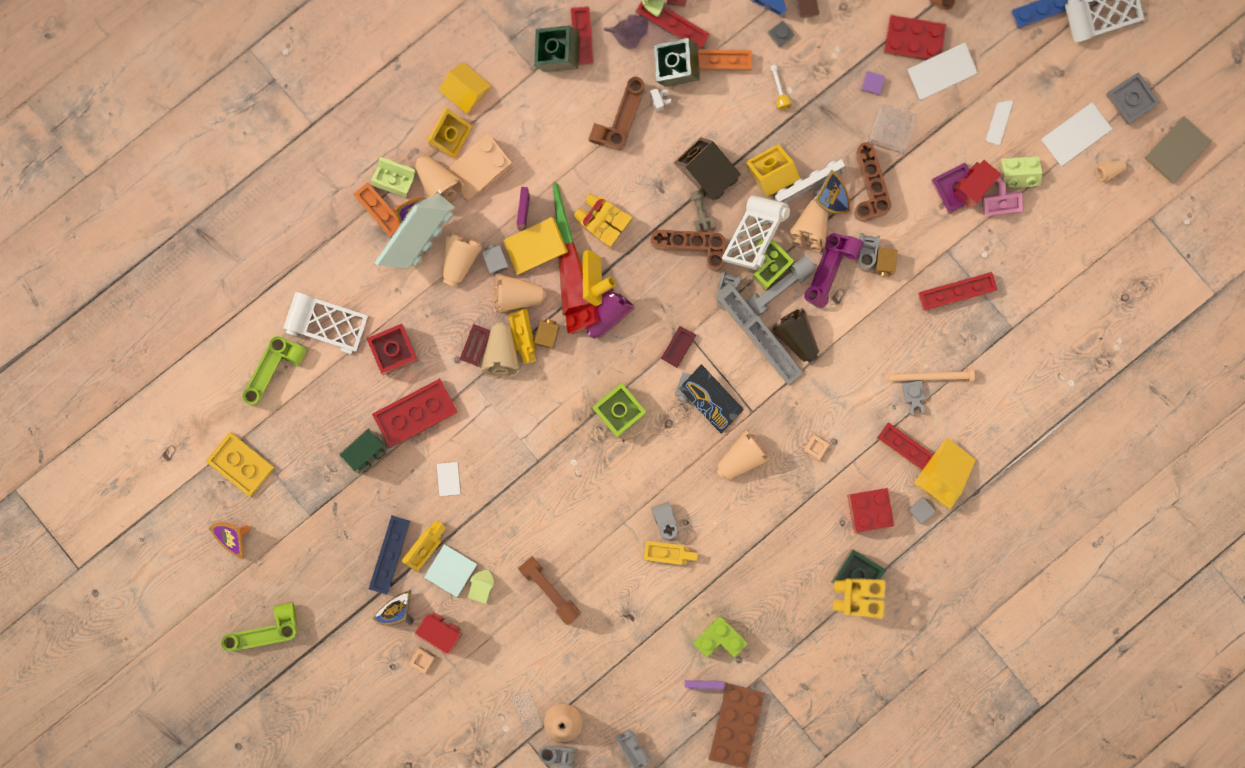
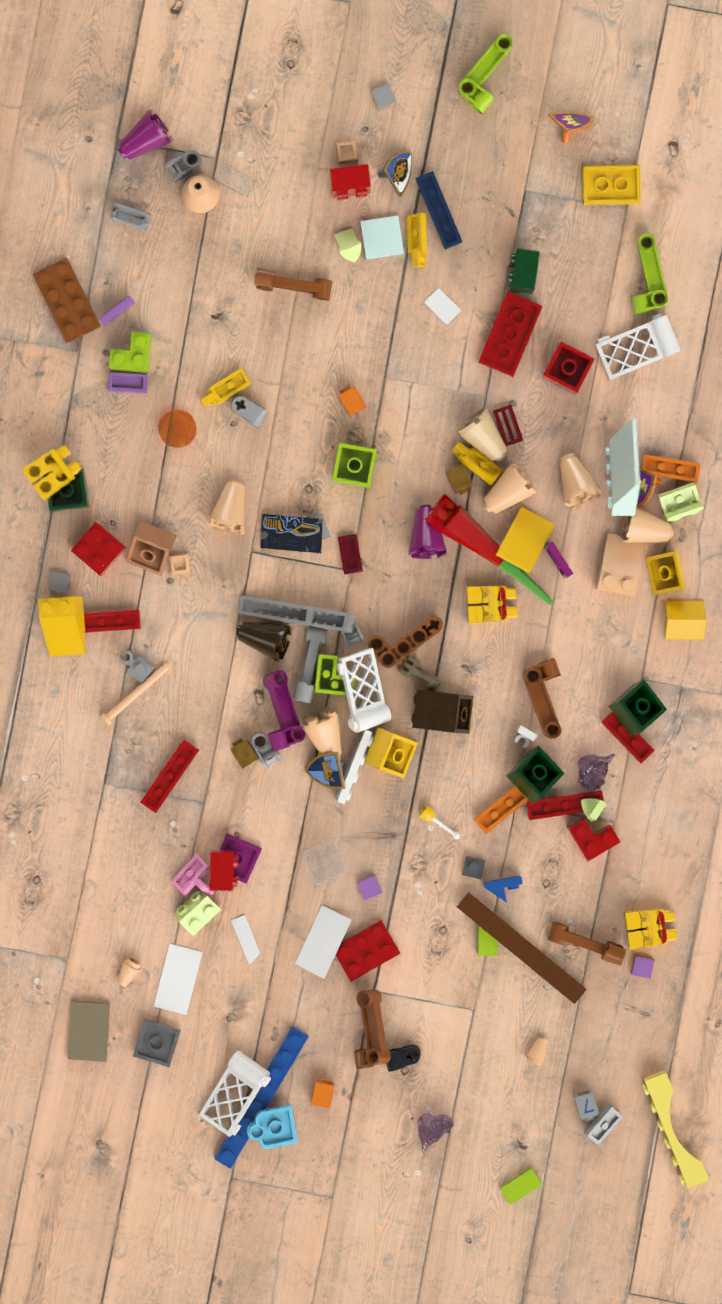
camera: 140 degrees right, 5 degrees up
(357, 680) = (383, 96): none -> light grey tile
(495, 259) = (548, 504): light grey brick -> none
(579, 463) = (351, 400): none -> orange brick
(592, 279) = (454, 543): yellow piece -> none
(732, 553) = (177, 428): none -> clear orange tile
(741, 622) = (127, 382): none -> medium lavender tile
(829, 477) = (151, 548): none -> nougat slope
(869, 180) = (309, 806): dark orange beam -> none

